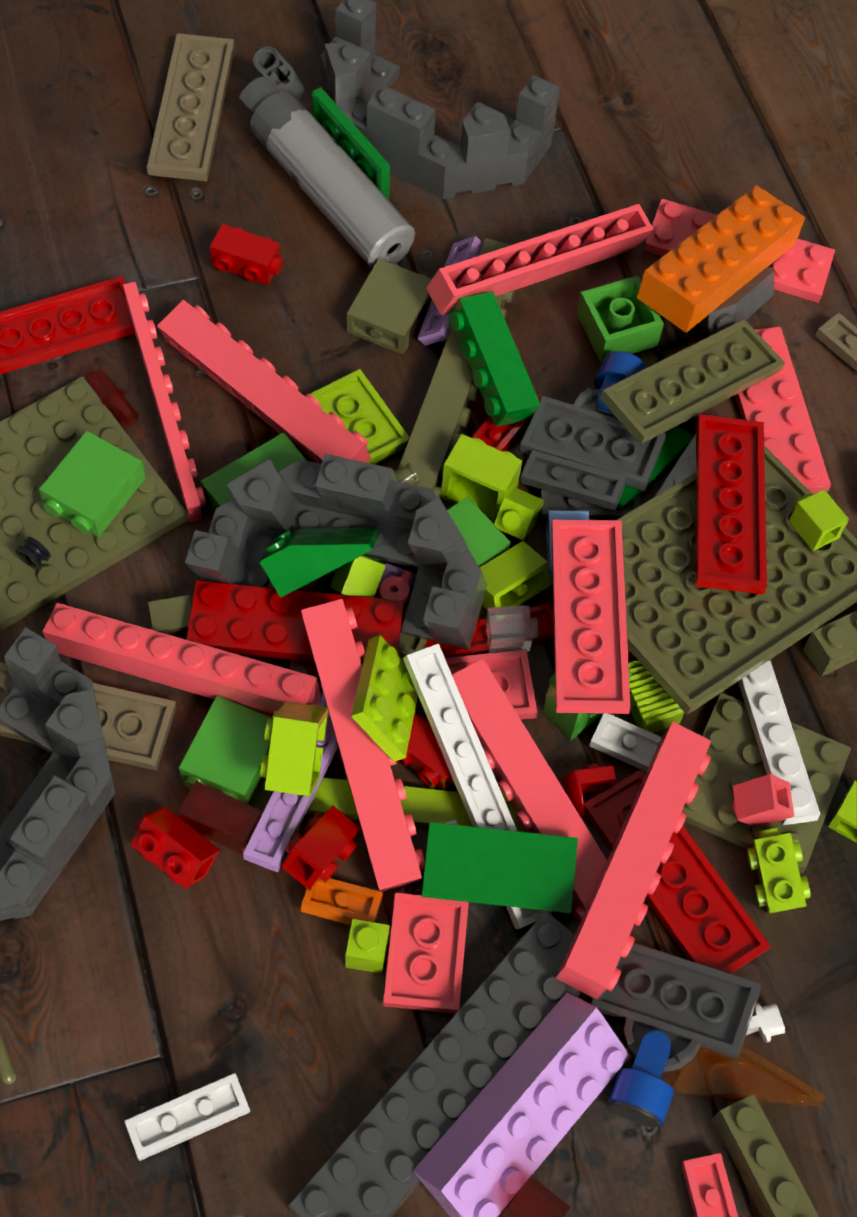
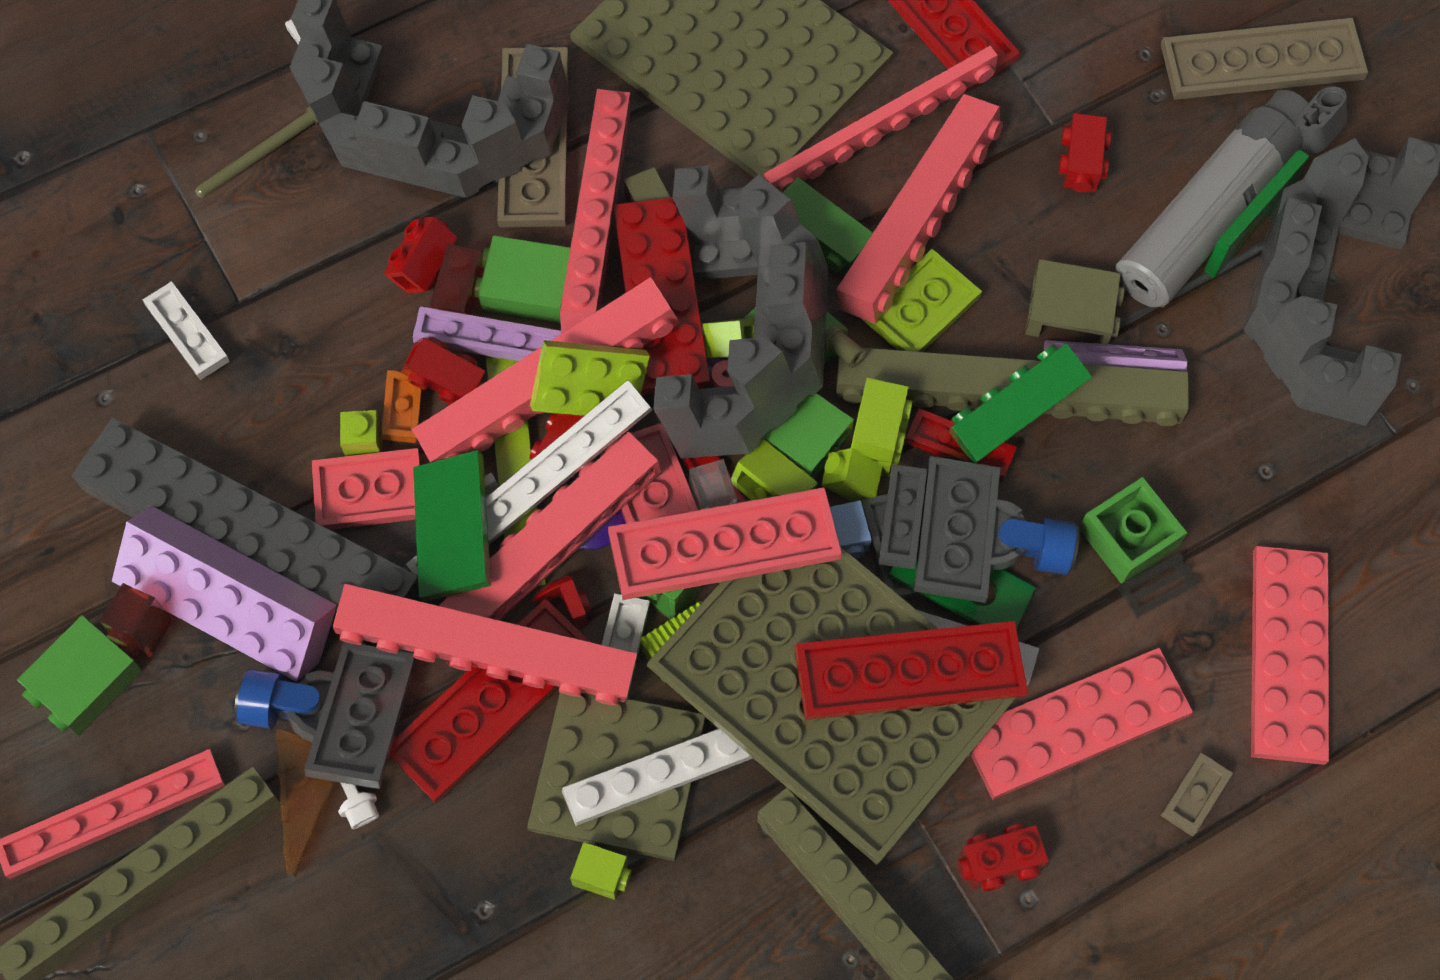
camera: 80 degrees right, 5 degrees up
(33, 553) = (677, 60): black bush -> none
(92, 484) = (763, 86): bright green brick -> none
(113, 398) = (876, 85): clear red axle -> none
(293, 754) = (505, 308): lime piece -> none
(313, 552) = (726, 280): green slope -> none
(540, 257) = (1173, 429): coral brick -> none
(691, 381) = (1065, 614): olive plate -> none
(720, 258) = (1242, 616): orange brick -> none
(741, 304) = (1201, 650): dark grey slope -> none
(763, 801) = (574, 760): coral brick -> none
(776, 861) = (509, 793): lime brick -> none
(818, 519) = (916, 765): lime brick -> none

